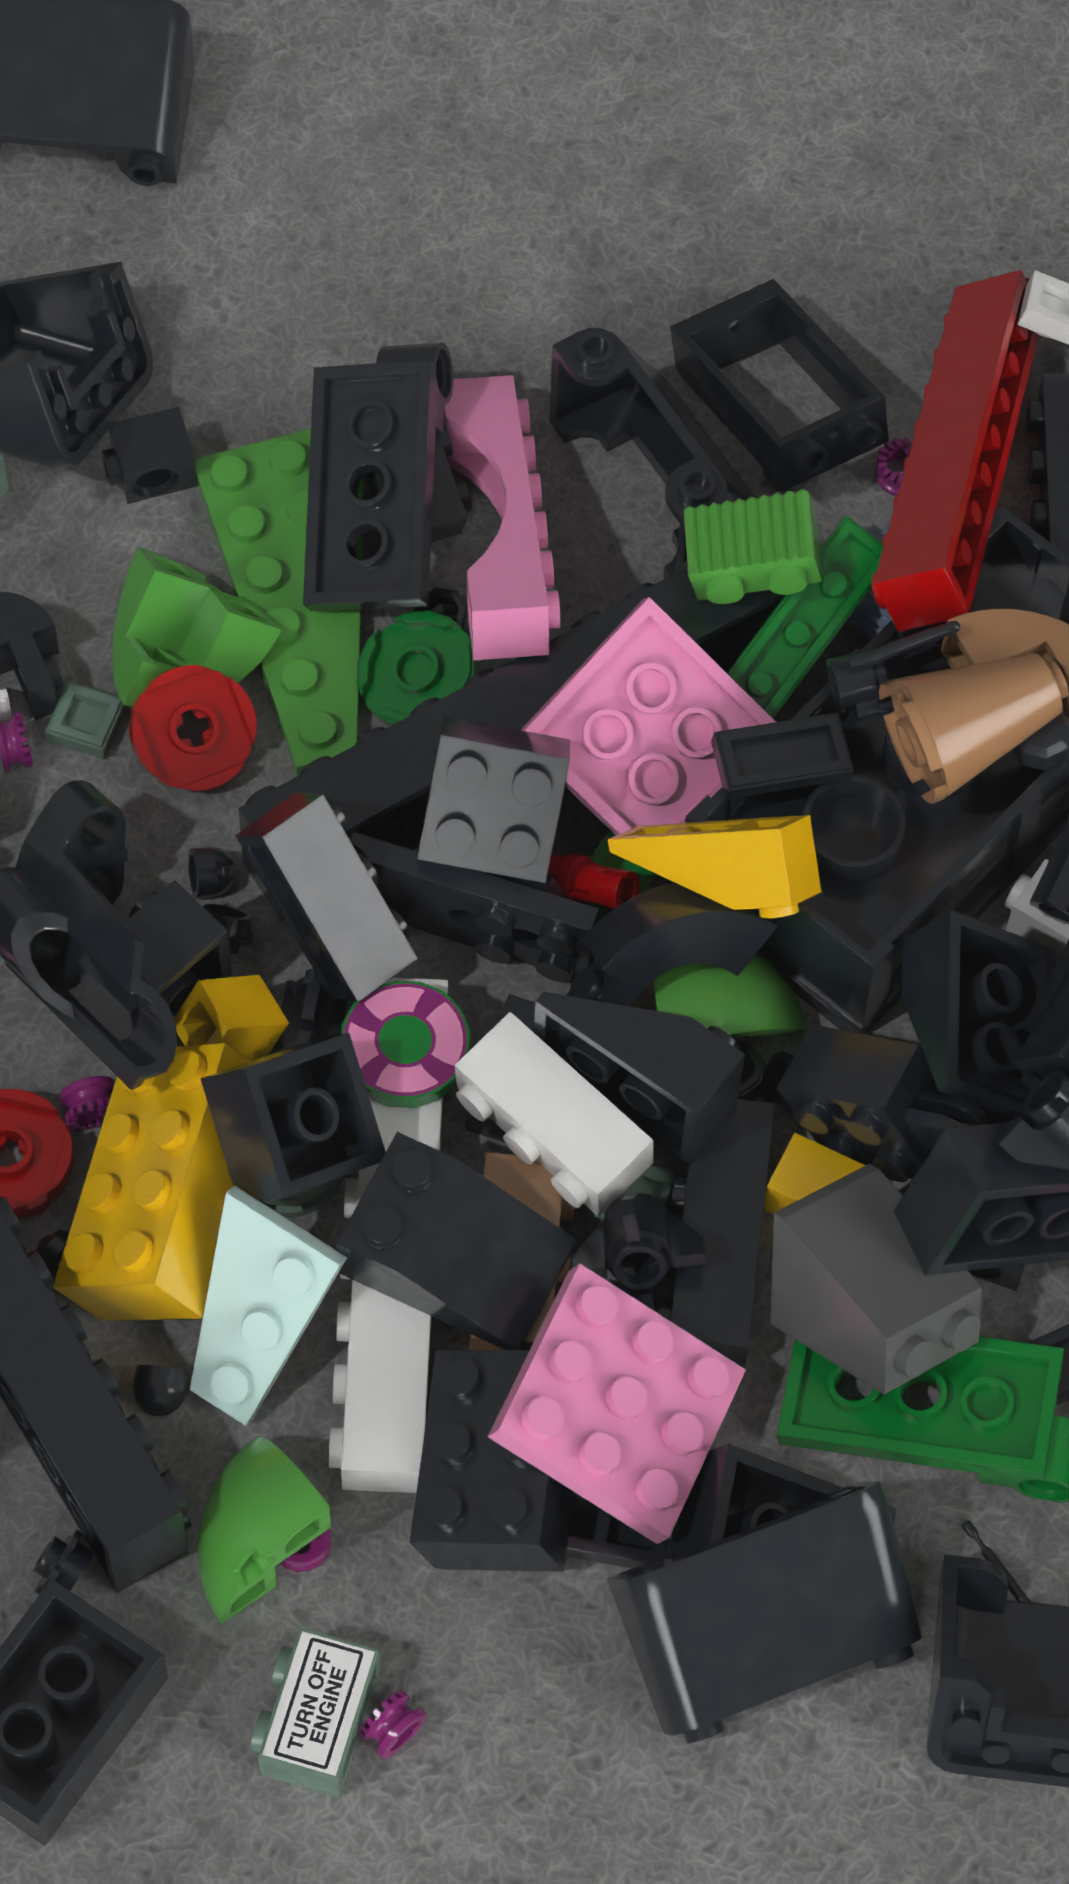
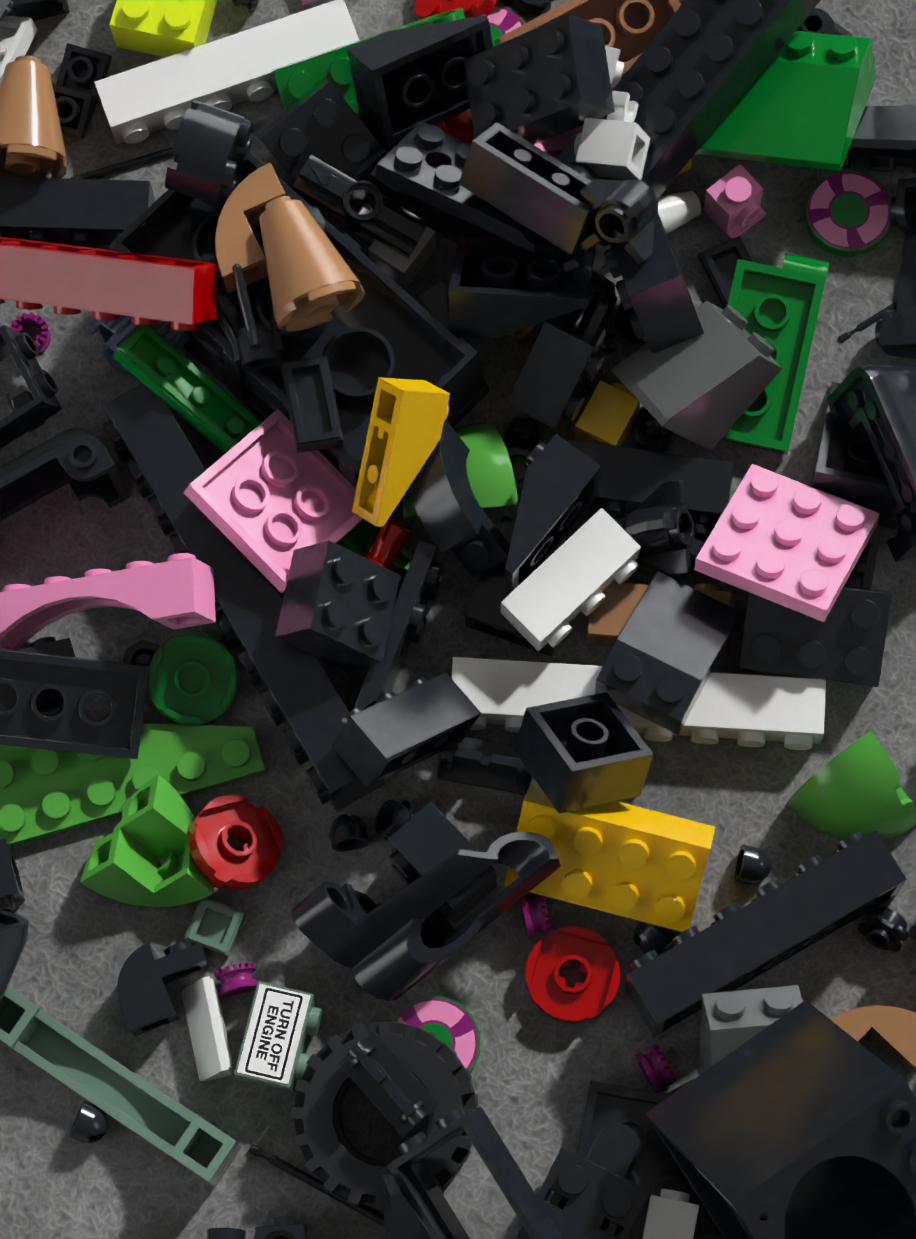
camera: 80 degrees left, 10 degrees up
(233, 1013) = (479, 810): yellow brick -> none
(258, 1303) = (708, 785): light aqua wing -> none
(407, 1042) = (505, 680): tile -> none
(753, 546) = (142, 415): bright green brick -> none

